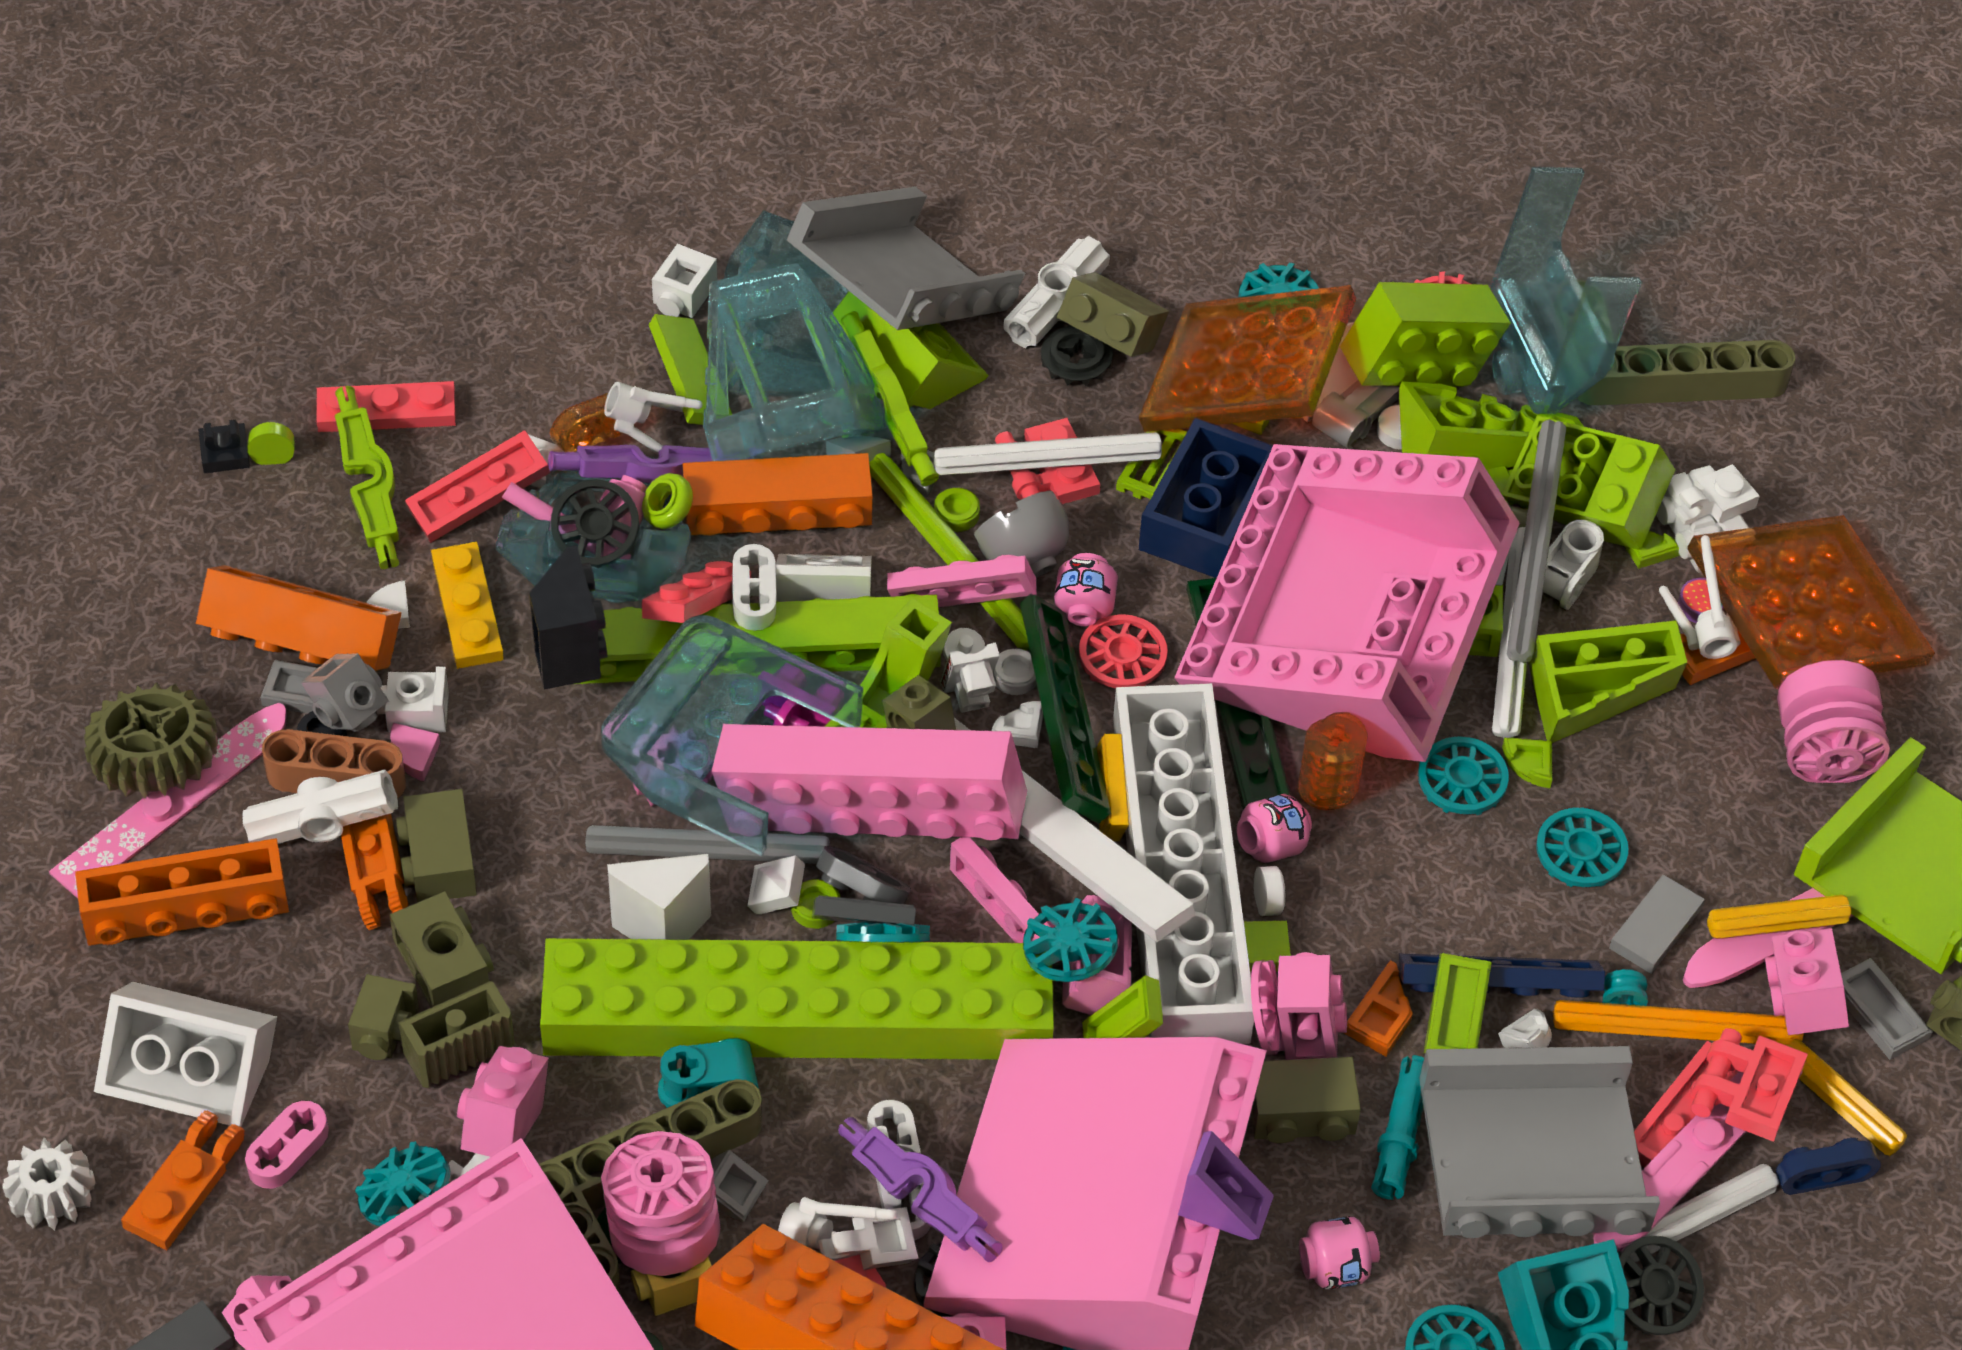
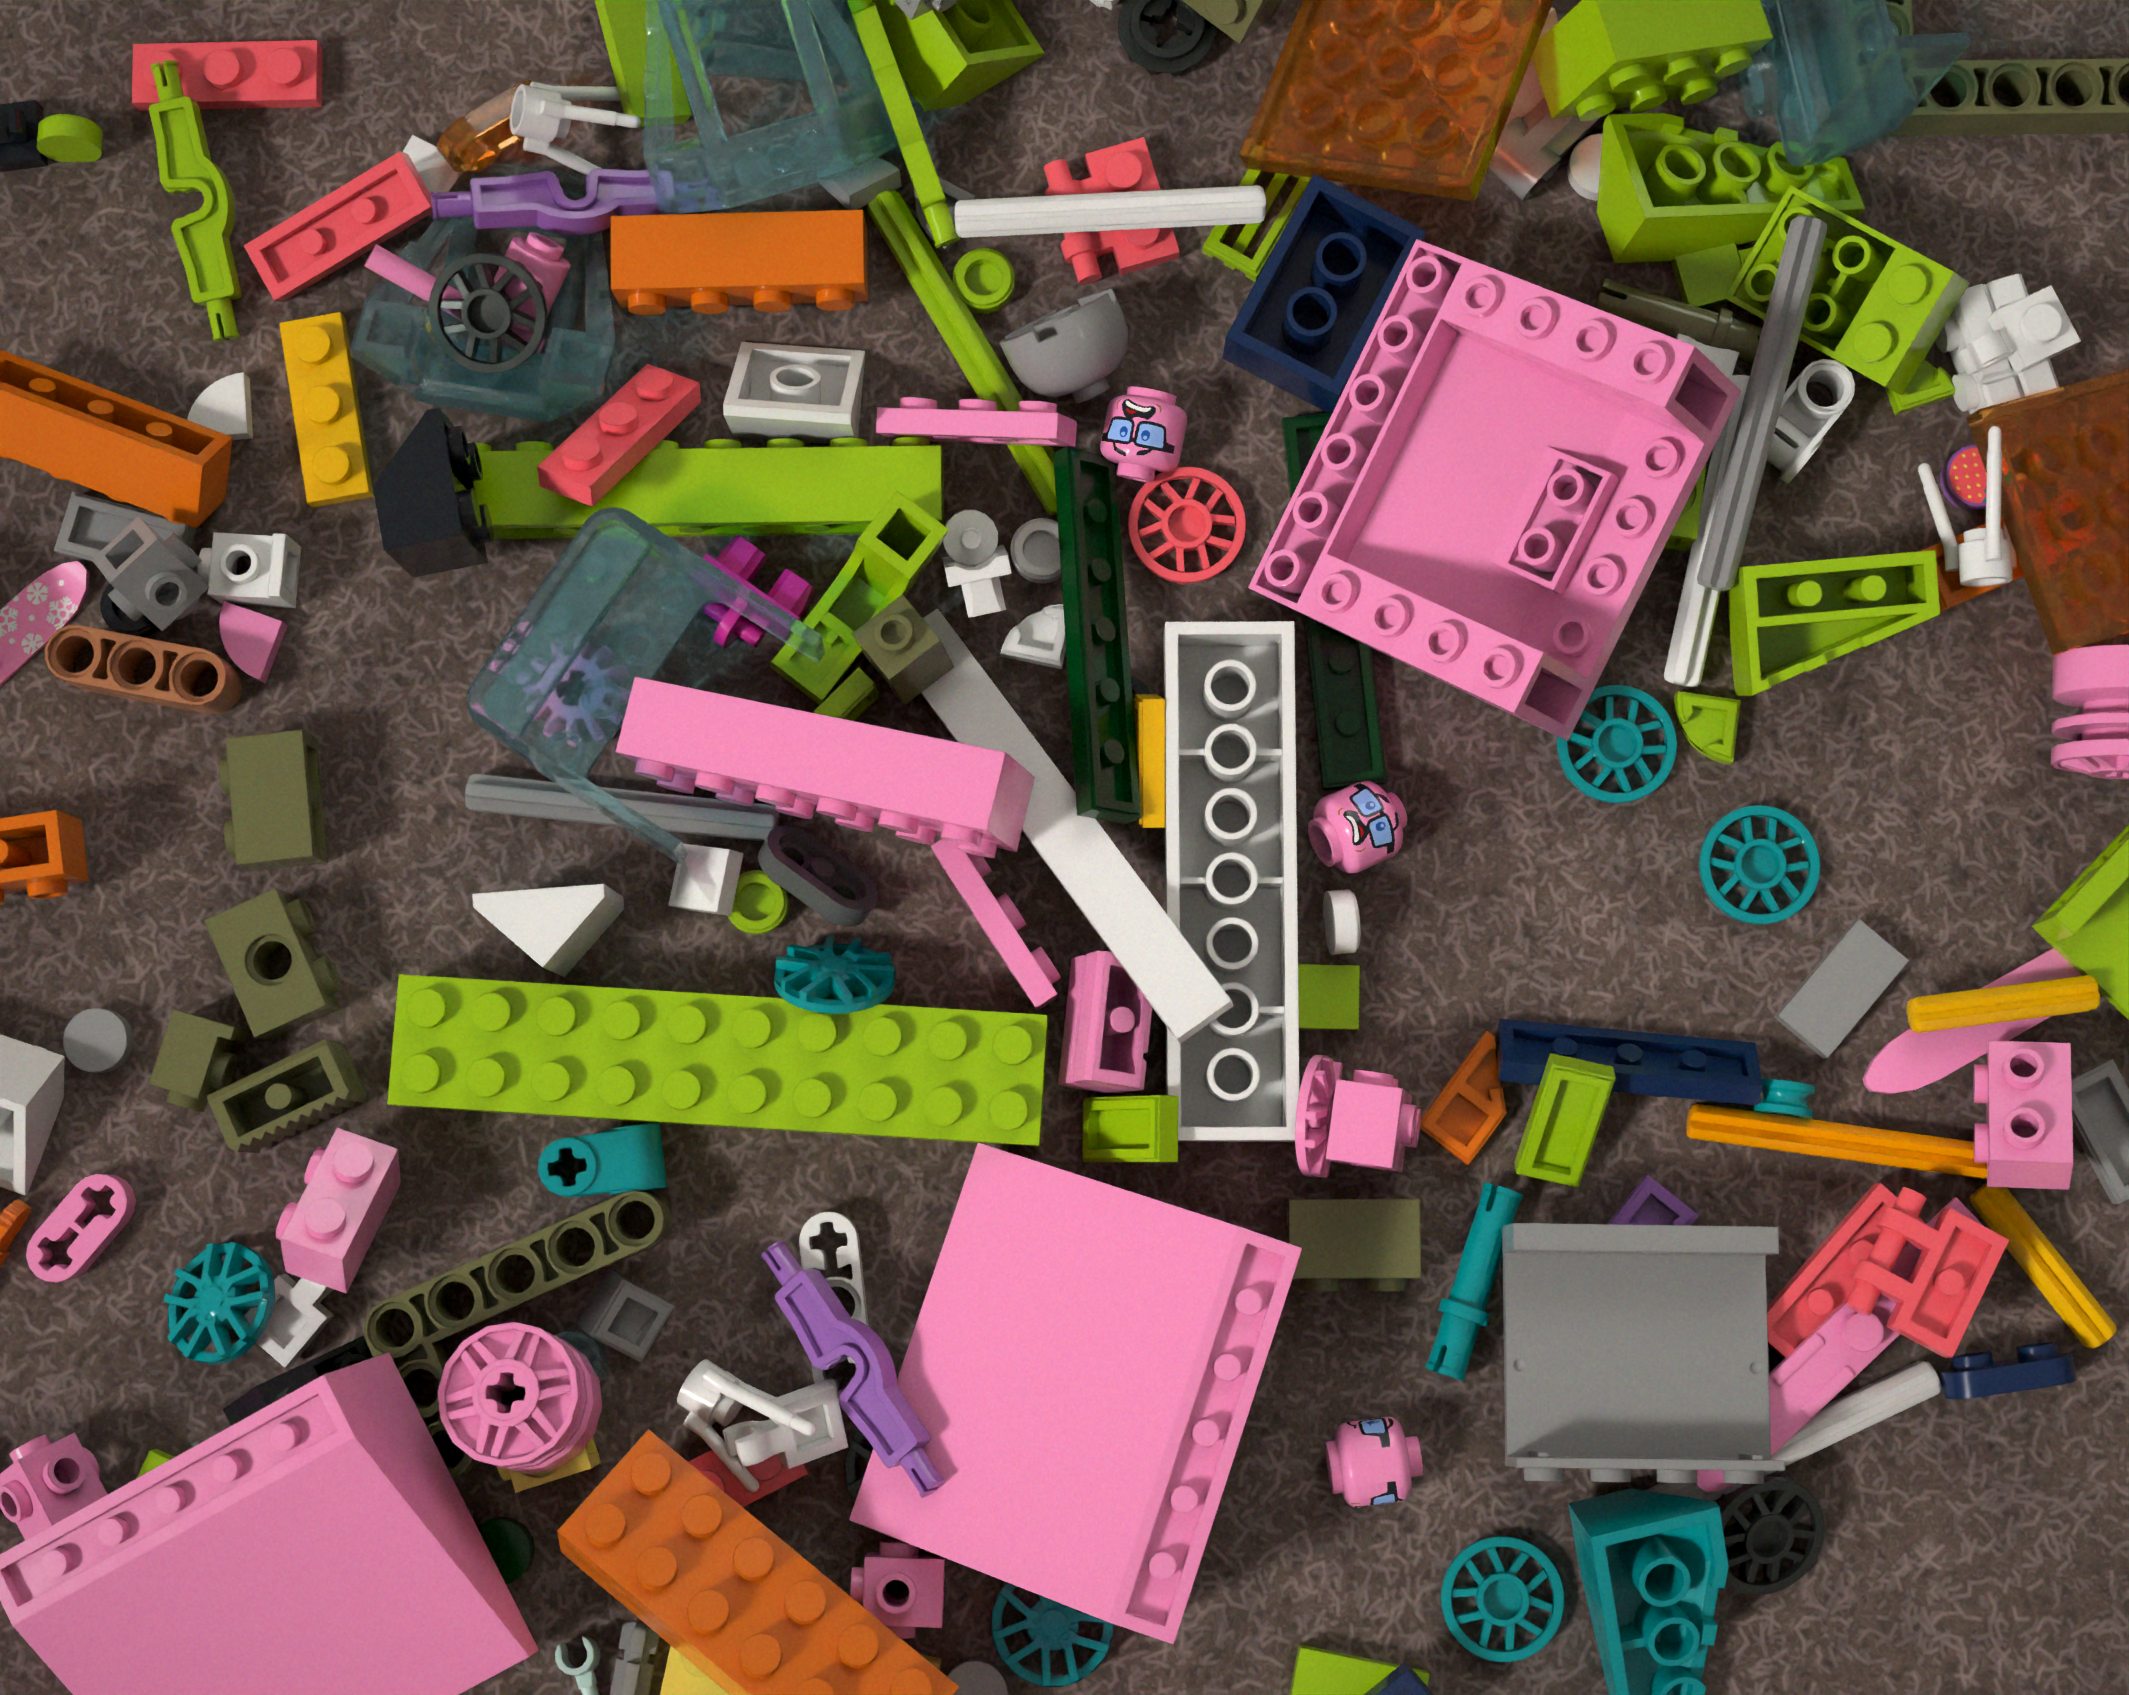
camera: 10 degrees right, 30 degrees up
(299, 1017) = (98, 1040): none -> light grey tile
(321, 808) = (120, 748): white piece -> none
(374, 866) = (192, 819): orange hinge -> none
(677, 507) = (602, 281): lime piece -> none
(744, 587) = (679, 431): white beam -> none
(862, 911) = (811, 942): dark grey tile -> none
(1070, 940) = (1068, 1030): teal wheel -> none
(1224, 1191) = (1224, 1486): medium lavender slope -> none
(1332, 761) = (1468, 743): clear orange piece -> none
(1527, 1032) = (1652, 1154): white tile -> none

